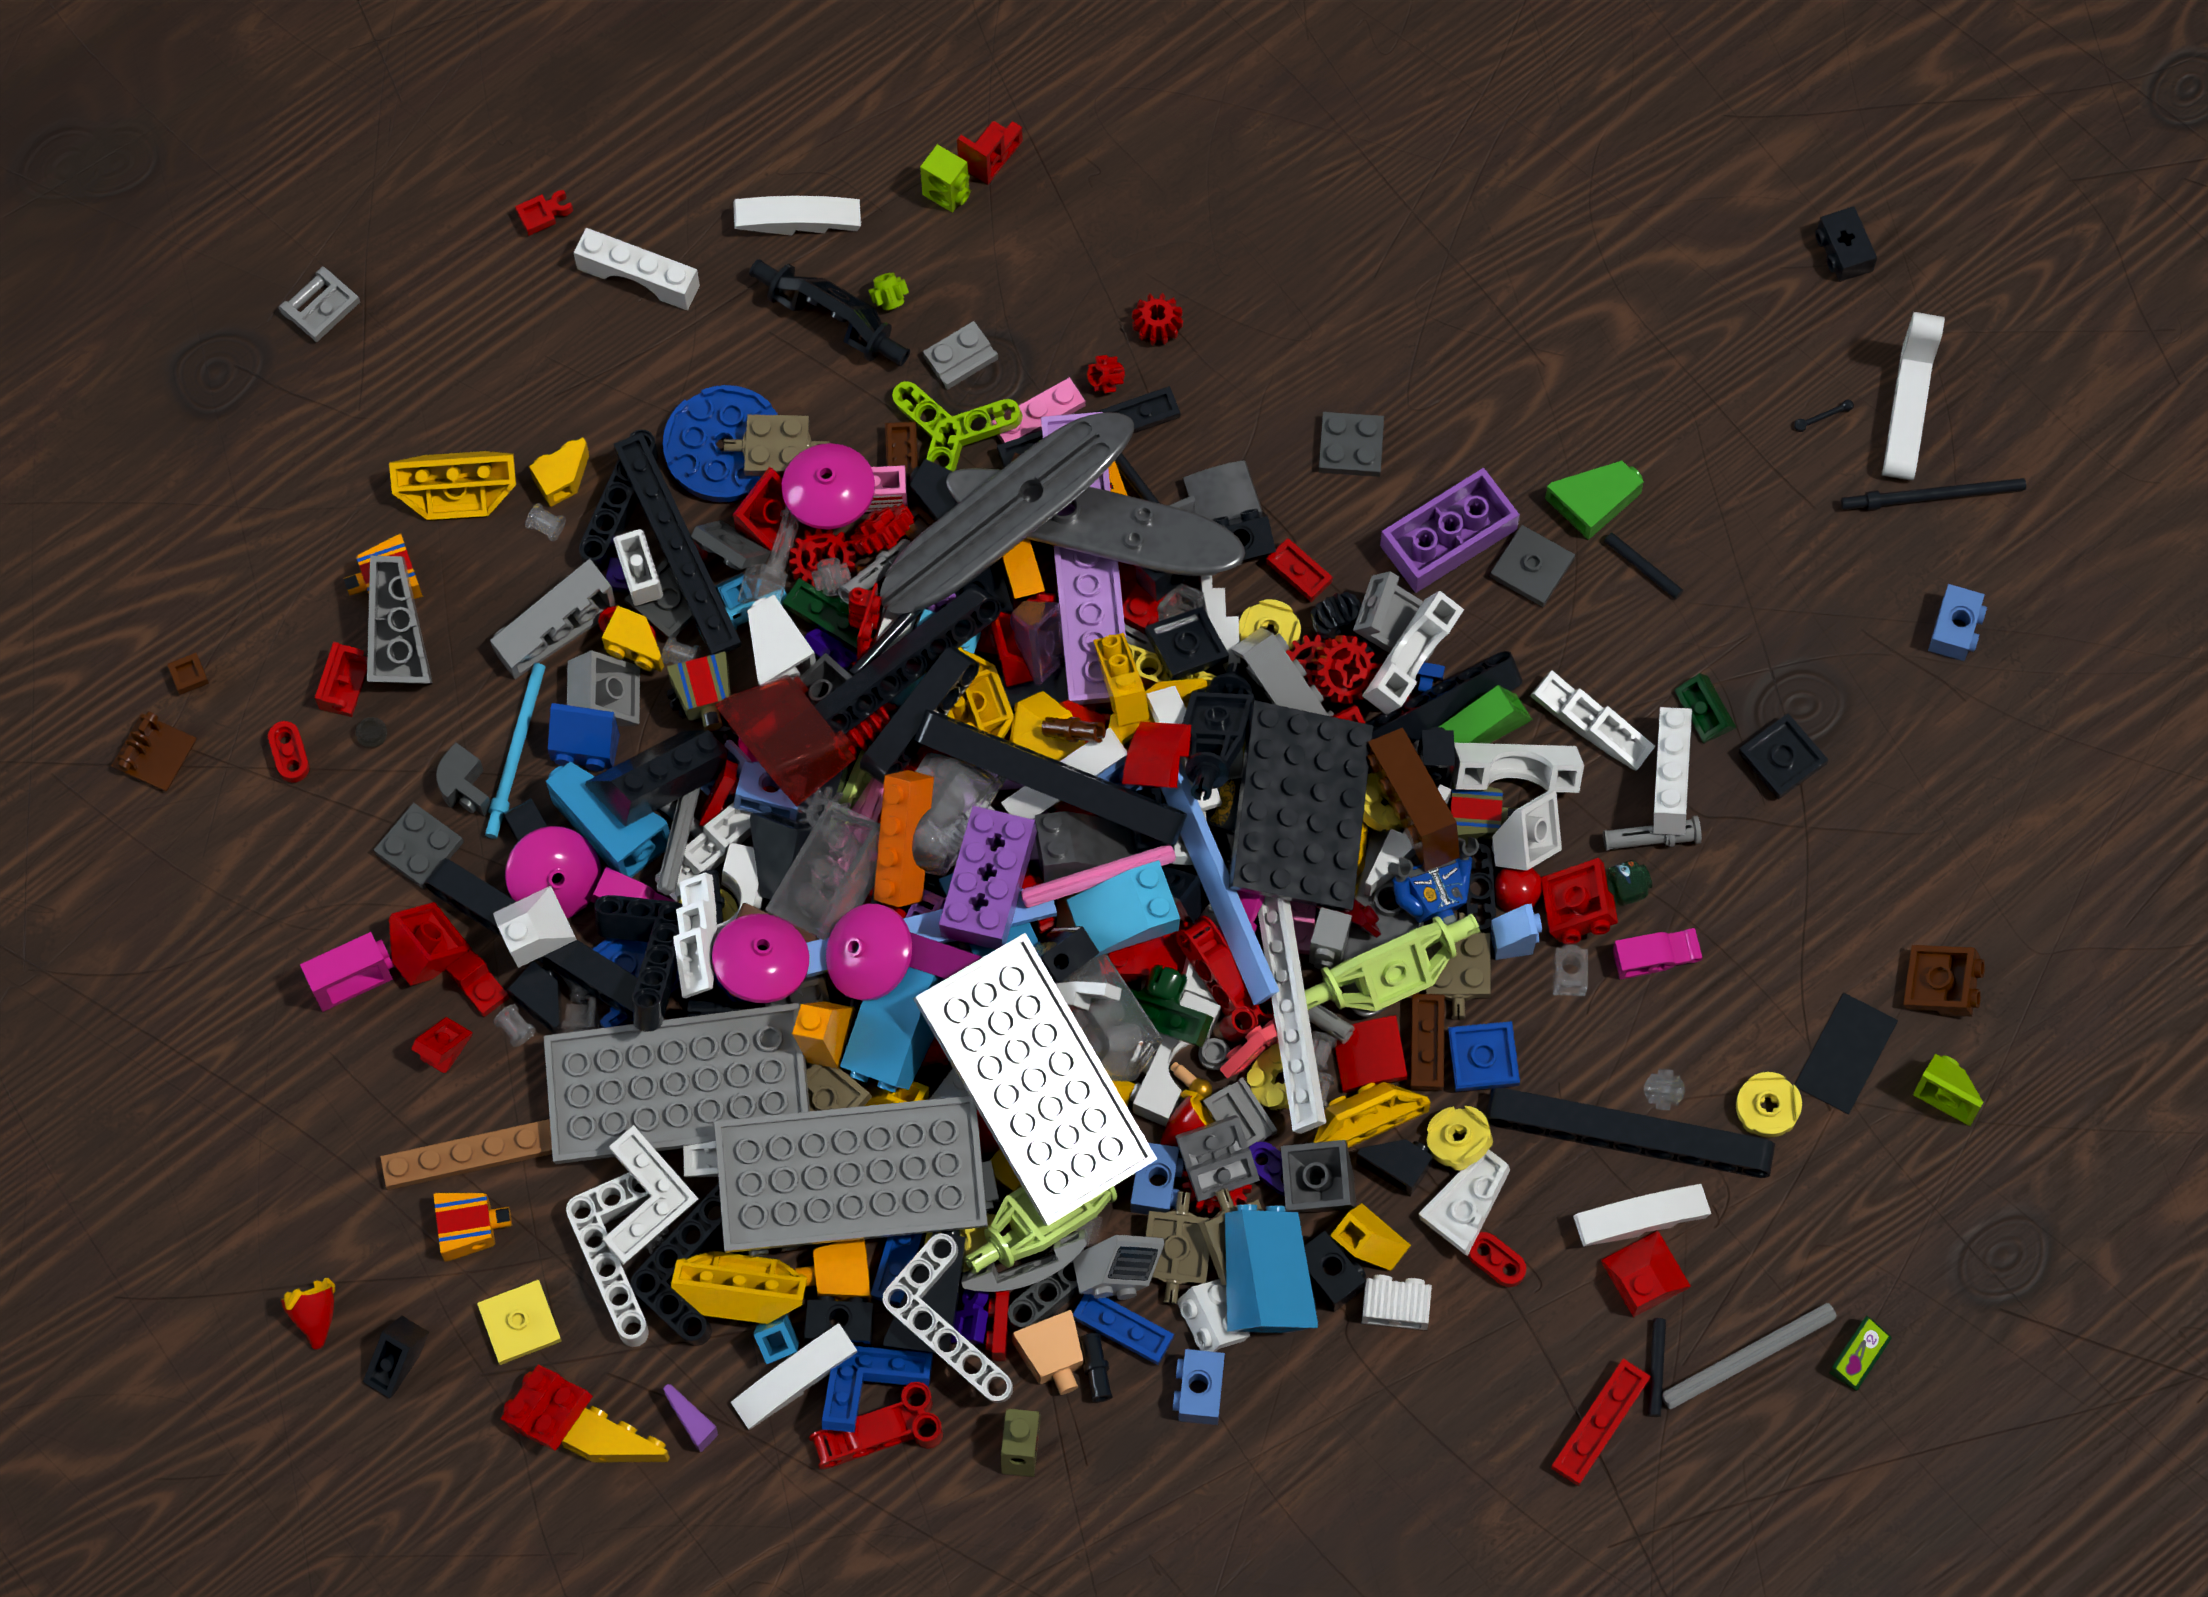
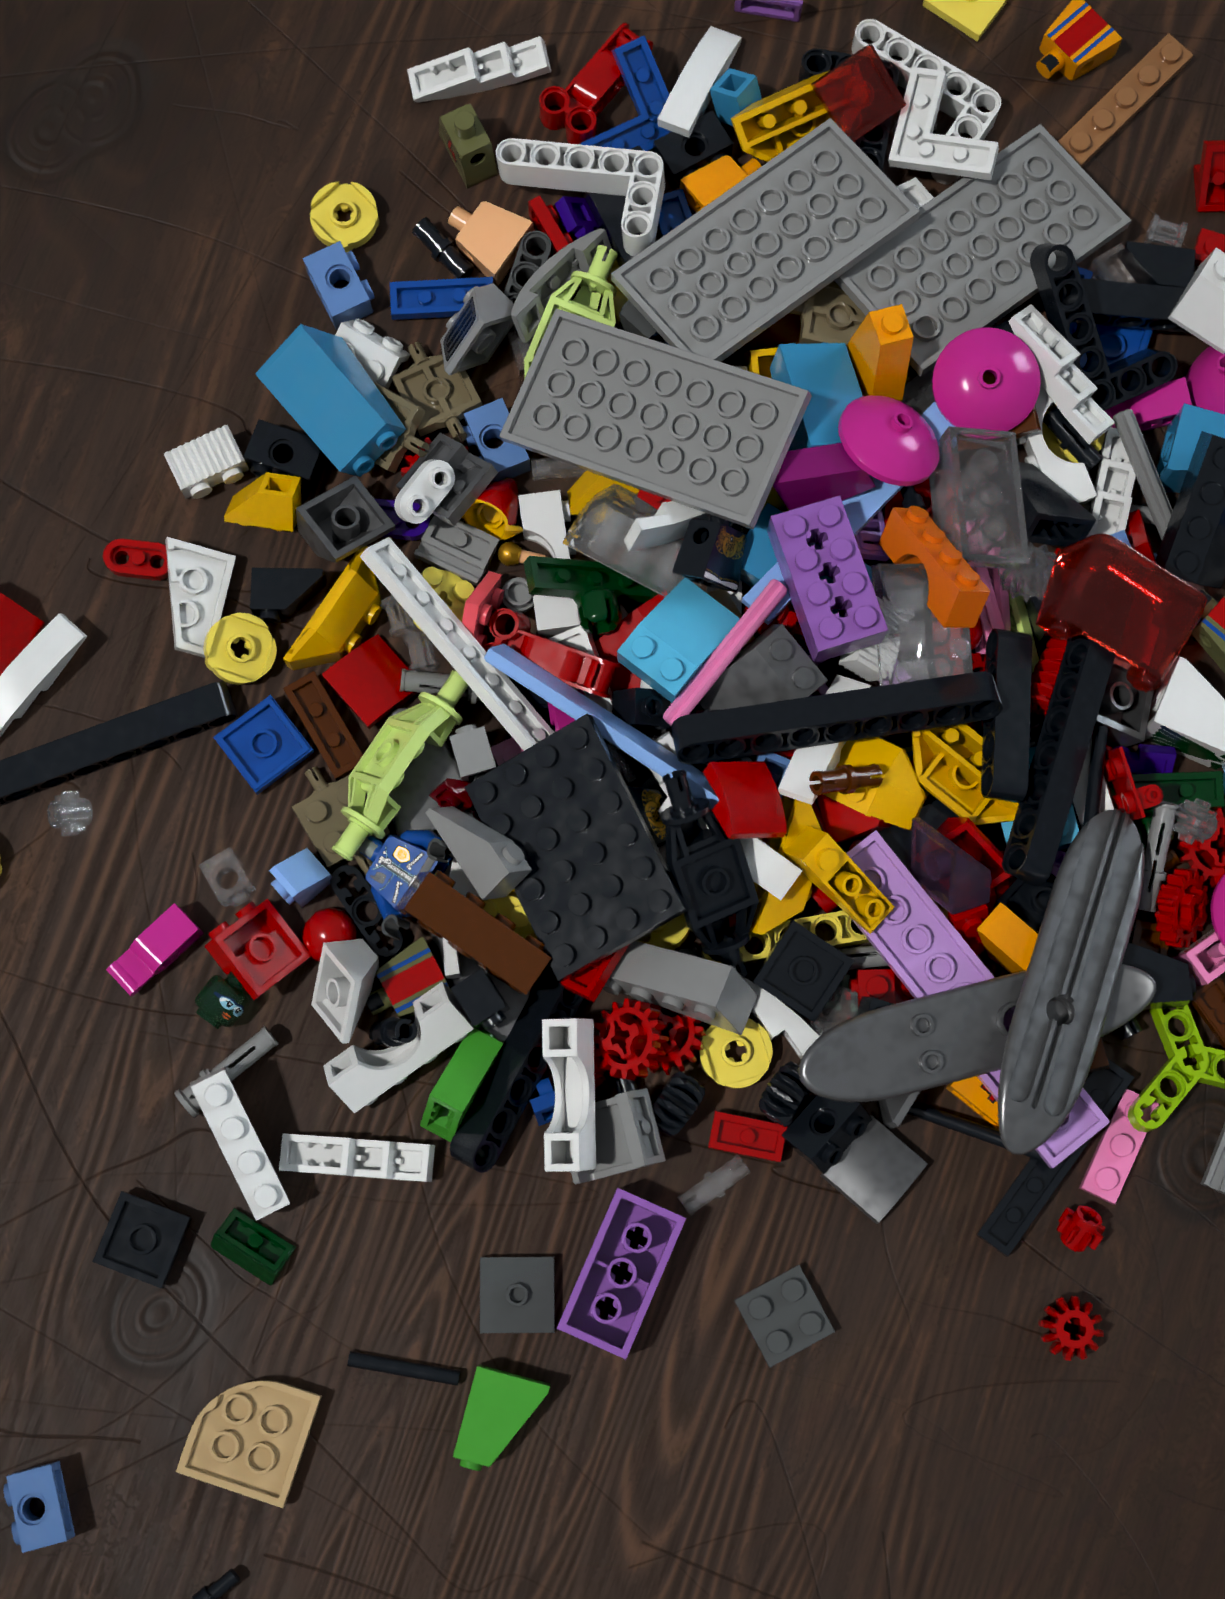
camera: 145 degrees right, 10 degrees up
(688, 1256) = (859, 93): none -> clear red plate
(967, 1506) = (480, 71): none -> white slope
(1171, 1432) = (344, 197): none -> light yellow plate
(1242, 1148) = (424, 488): none -> white plate
(1253, 575) = (785, 1096): none -> black gear
(1344, 553) = (714, 1185): none -> clear pin
(1372, 847) = (484, 854): none -> light grey slope
(1513, 780) = (393, 1032): none -> black pin
(1780, 580) = (251, 1439): none -> tan plate

